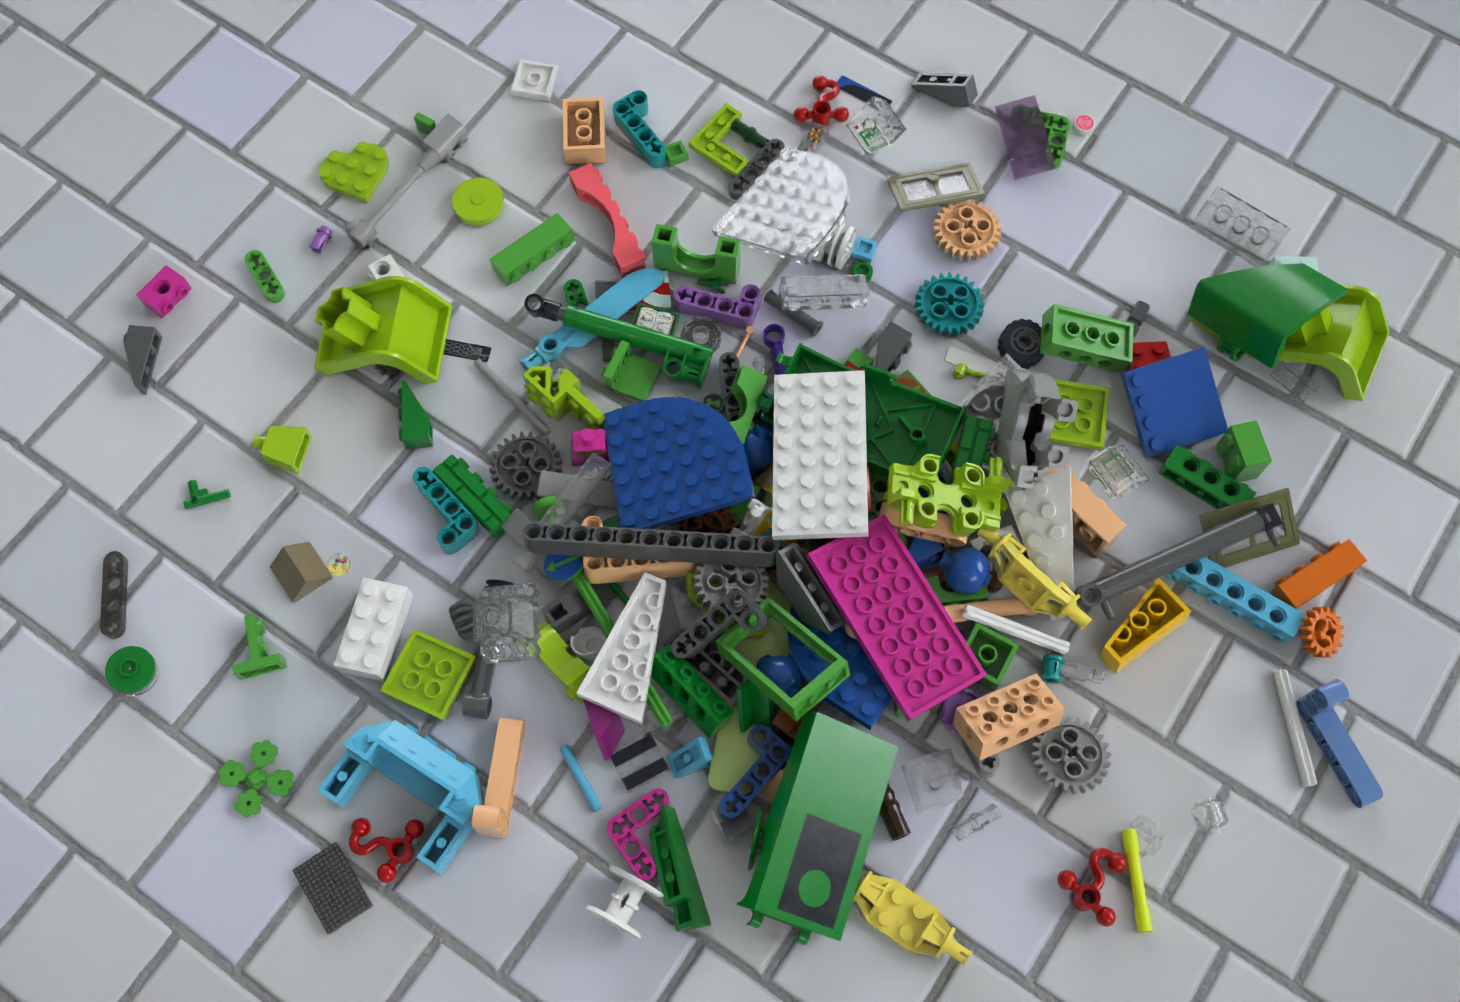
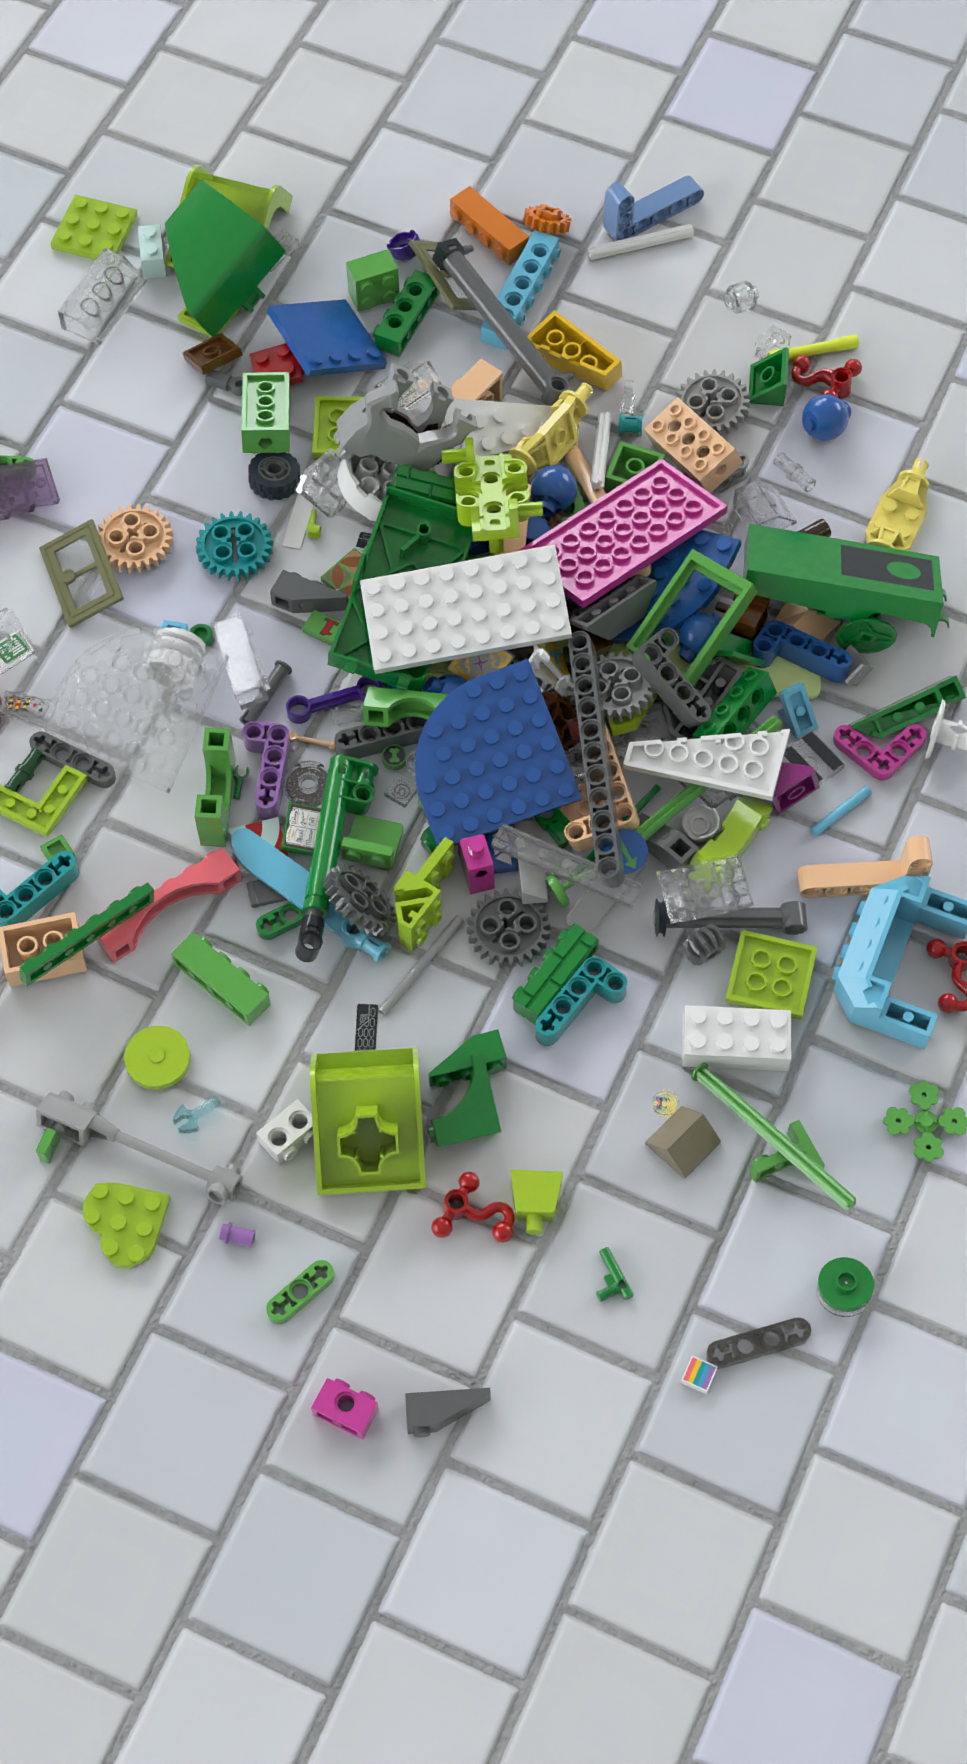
camera: 100 degrees left, 5 degrees down
(105, 543) = (699, 1374): none -> tile
(266, 636) = (774, 1137): none -> bright green axle
(309, 399) = (469, 1183): none -> red piece
(361, 408) = (473, 1115): none -> green arch
(426, 223) = (194, 1115): none -> clear light blue bar
(568, 328) = (359, 900): none -> dark grey gear
(574, 143) = (93, 929): none -> green plate
(1036, 866) = (825, 417): none -> blue brick
(1097, 822) = (769, 379): none -> green slope
(1166, 309) = (212, 354): none -> reddish brown plate
(1299, 490) = (400, 247): none -> dark purple hair
(1325, 232) = (92, 226): none -> lime plate

